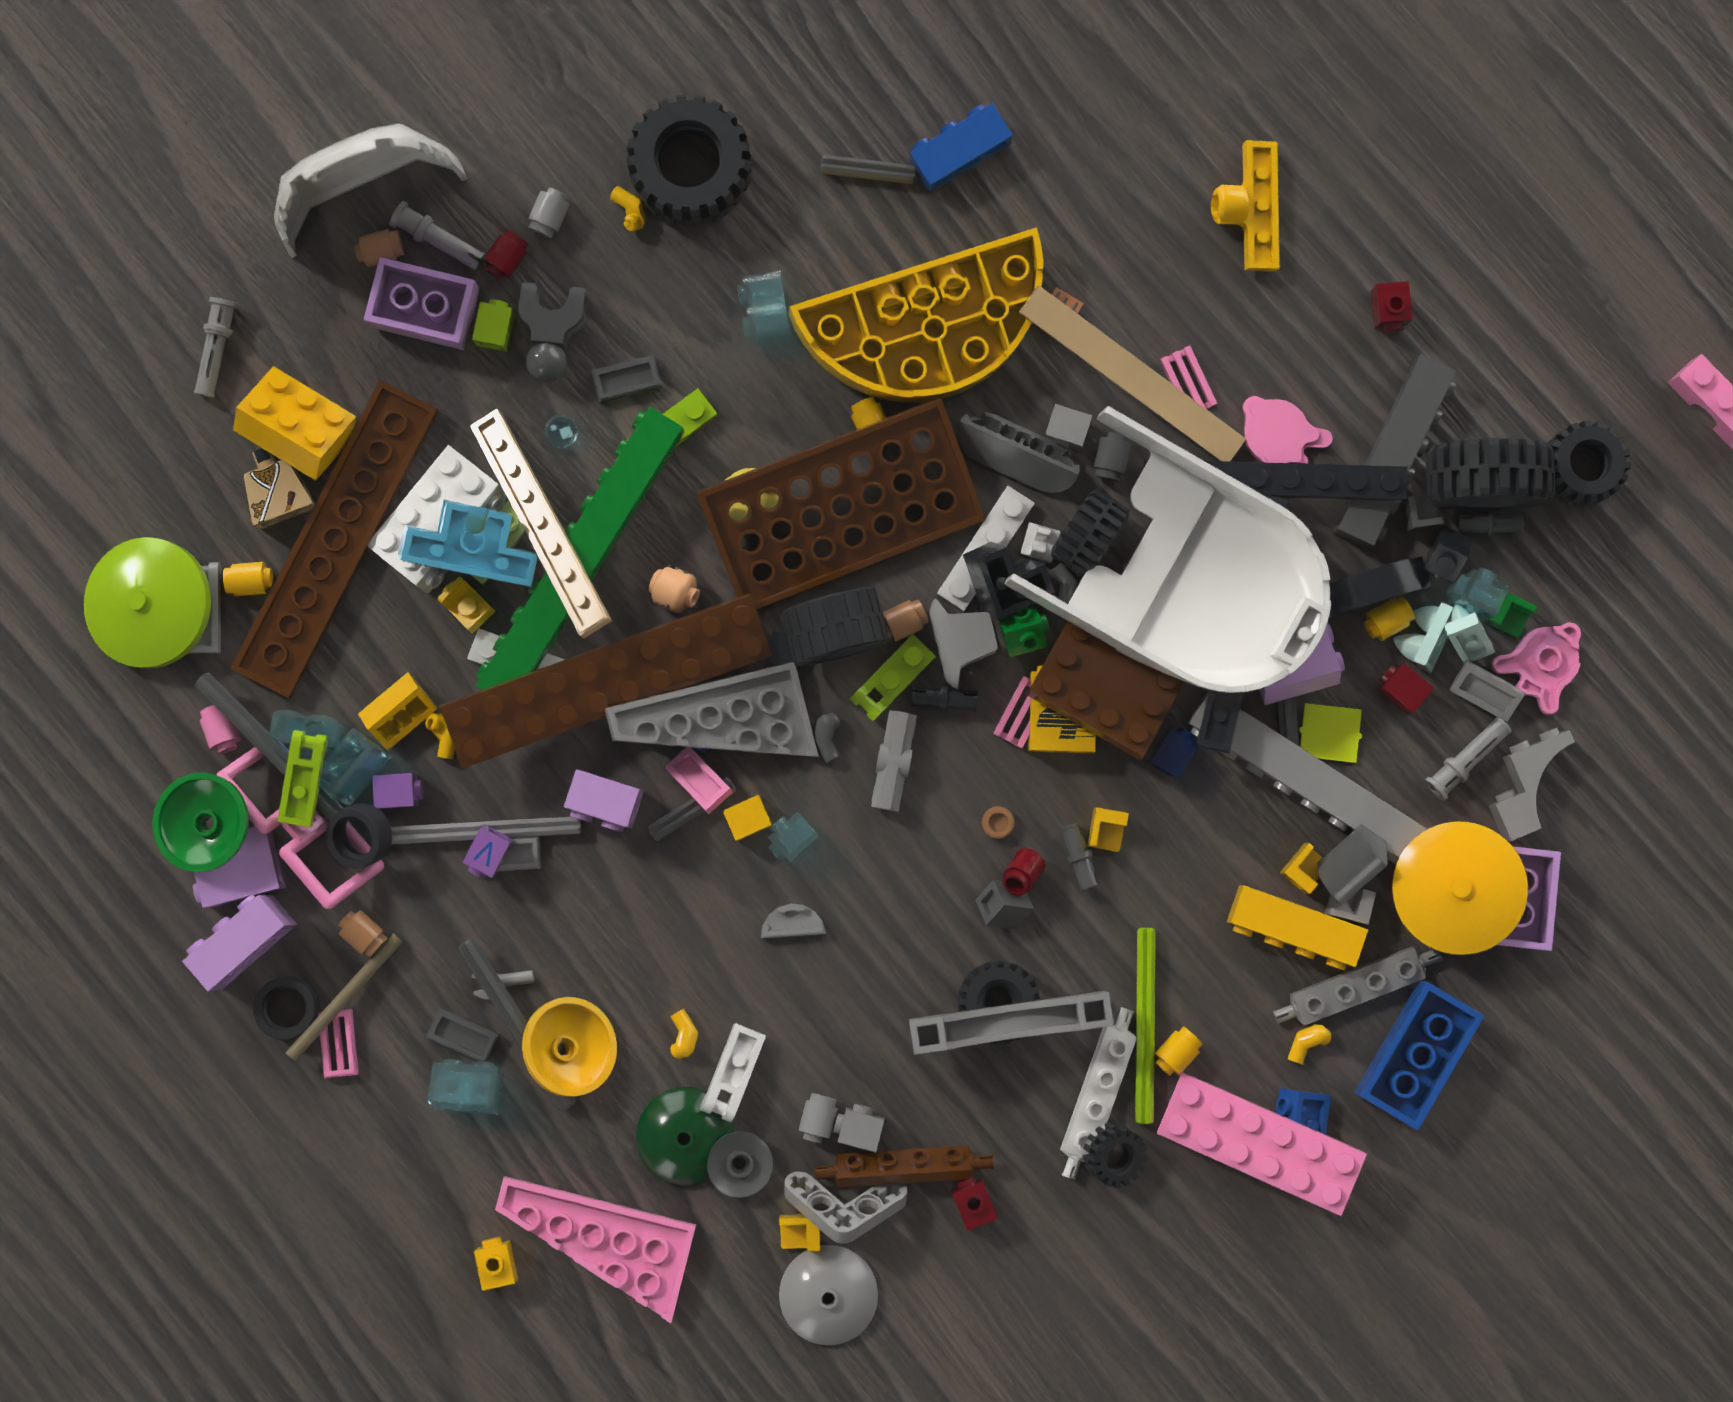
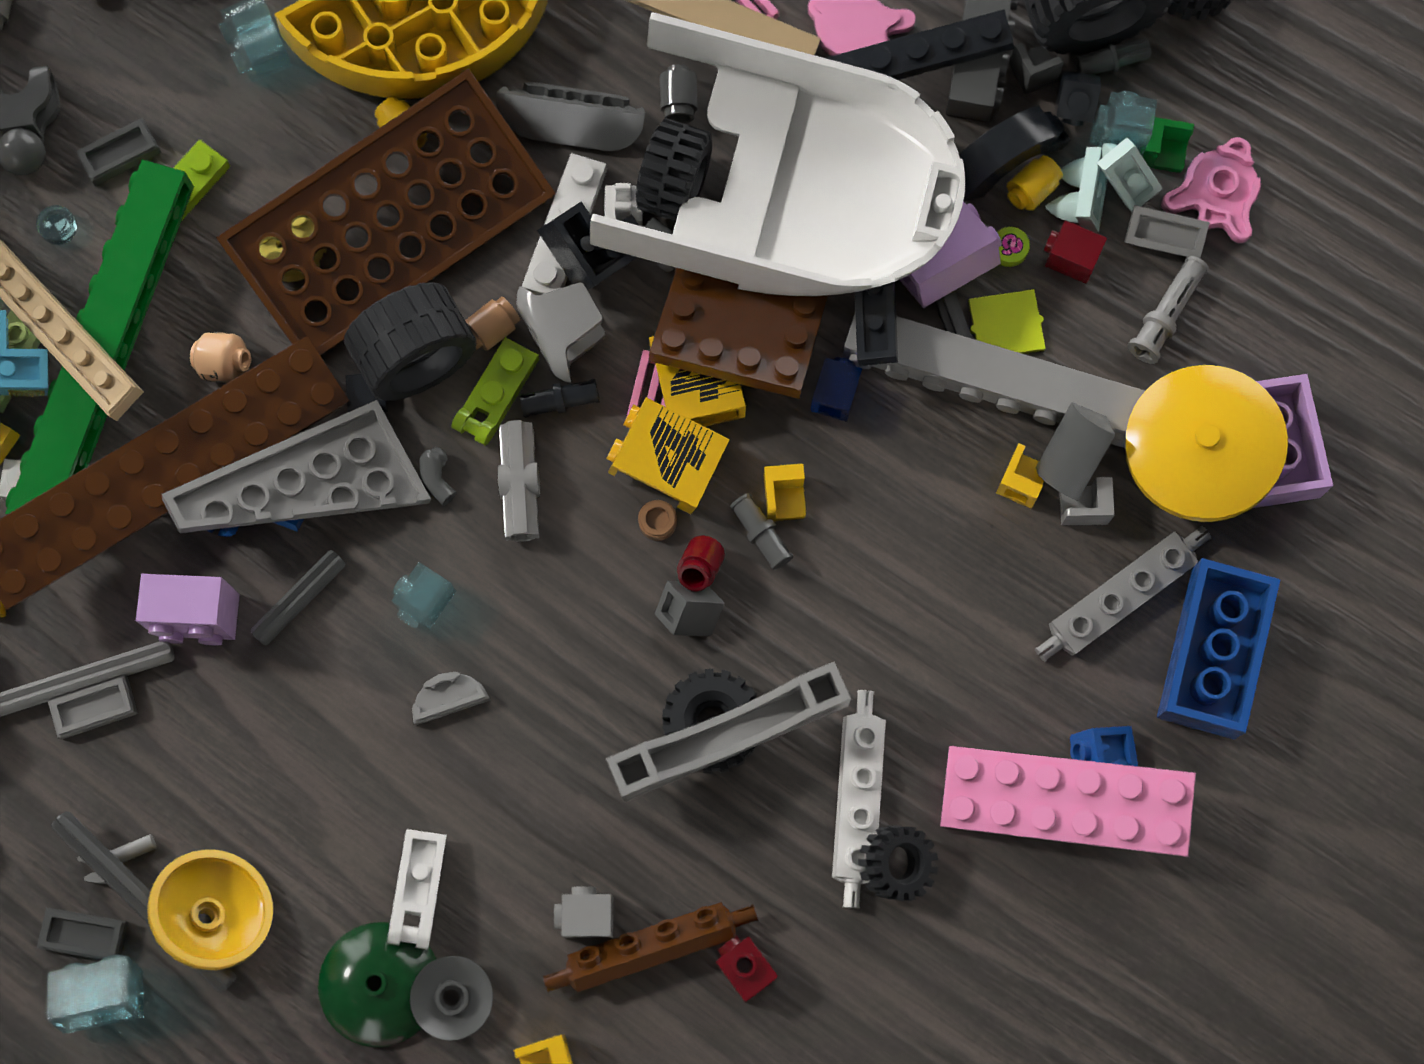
camera: 10 degrees left, 10 degrees down
(487, 852) = (62, 705): medium lavender brick -> none
(686, 1037) = (352, 862): yellow arm -> none
(698, 779) = (297, 560): bright pink tile -> none
(747, 818) = (364, 588): yellow panel -> none
(818, 1118) = (533, 916): light grey brick -> none
(845, 1214) = (594, 1028): light grey beam -> none
(1020, 773) = (668, 453): none -> yellow panel
(1024, 631) = (628, 297): green brick -> none
(1068, 426) = (622, 70): light grey panel -> none
(1145, 1025) = (892, 706): lime axle -> none
(1178, 1051) = (938, 723): yellow brick -> none
(1297, 926) = (1033, 542): yellow brick -> none
(1308, 1038) = (1082, 669): yellow arm -> none
(1356, 667) = (1014, 246): none -> lime tile
(1517, 813) = (1235, 301): light grey arch -> none

